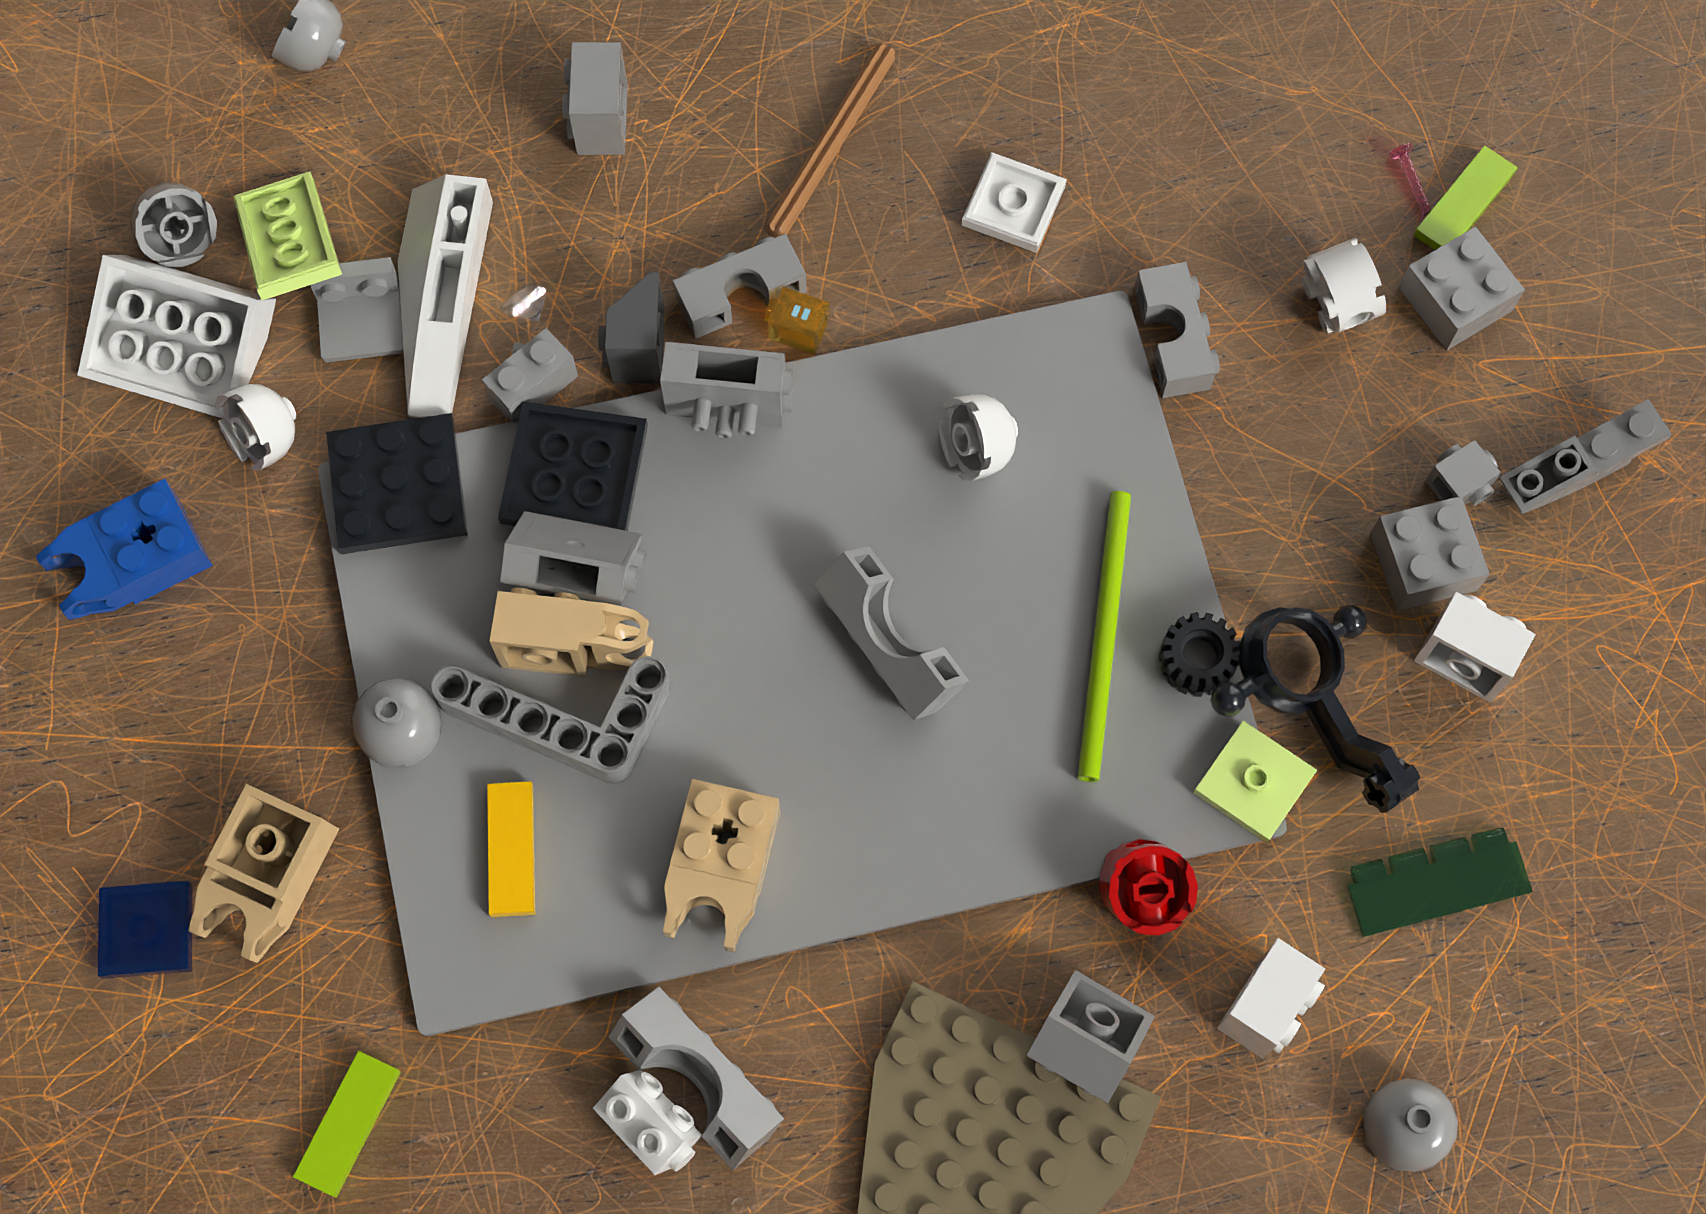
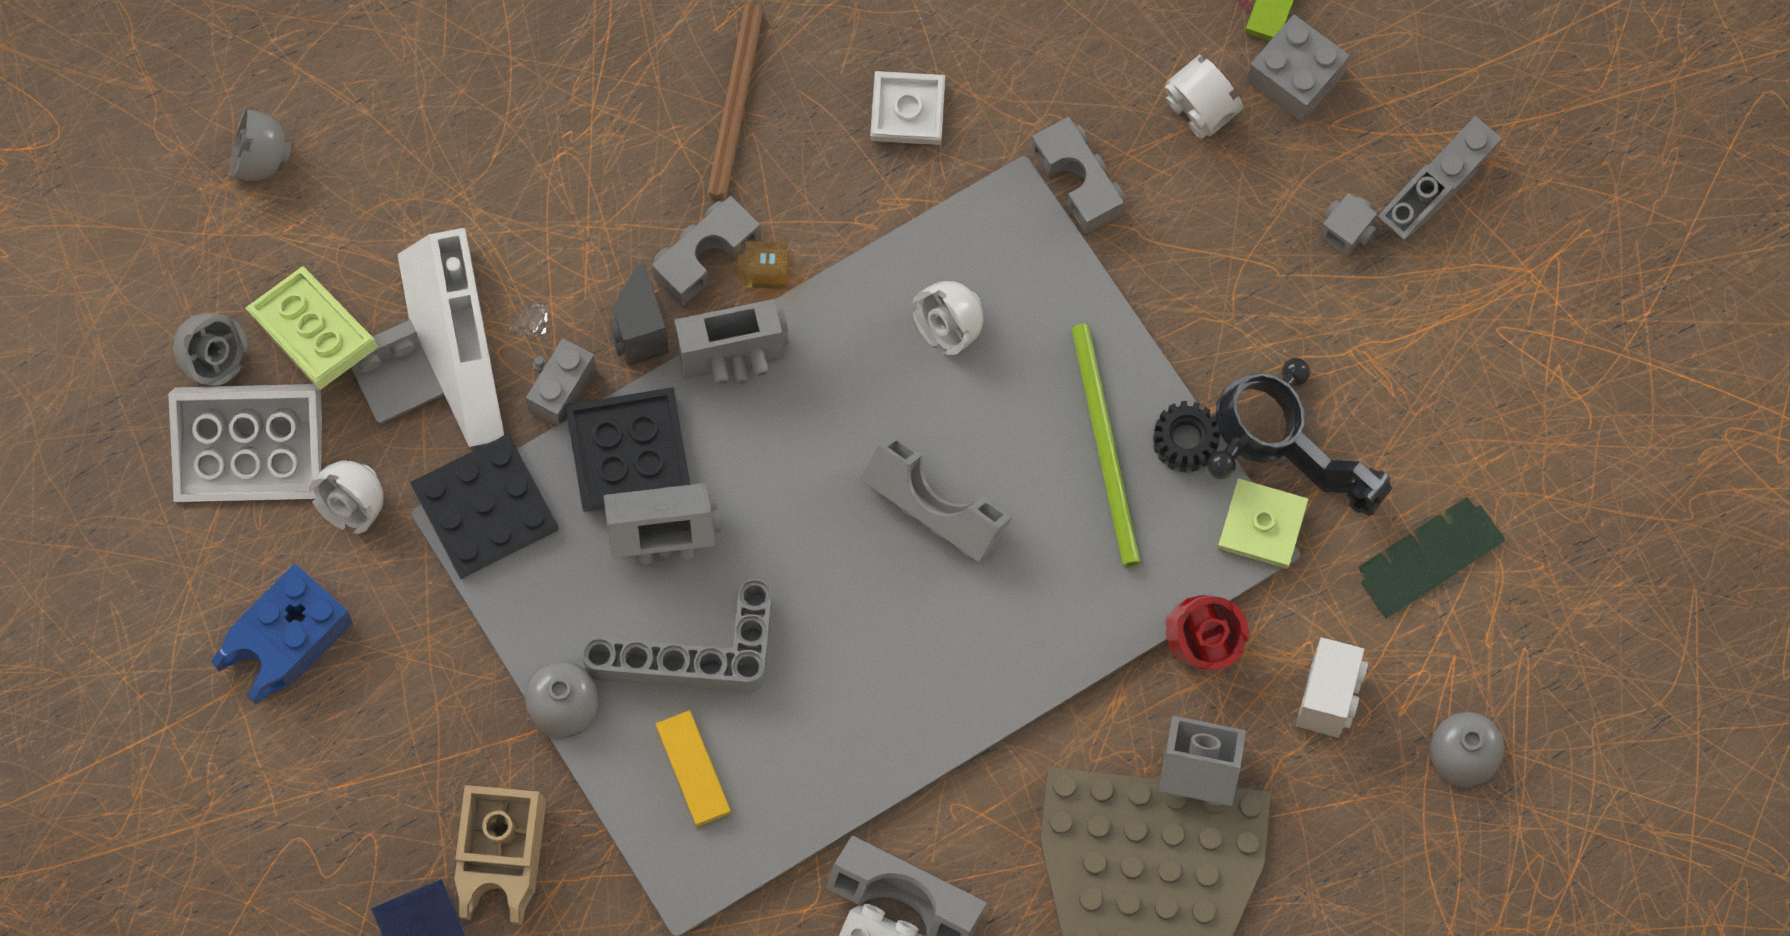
camera: 20 degrees left, 0 degrees up
(564, 633) = (677, 582): tan brick -> none
(596, 98) = (528, 128): light grey brick -> none
(717, 873) = (869, 731): tan brick -> none
(1429, 553) = (1341, 296): light grey brick -> none
(1475, 646) = (1400, 361): white brick -> none

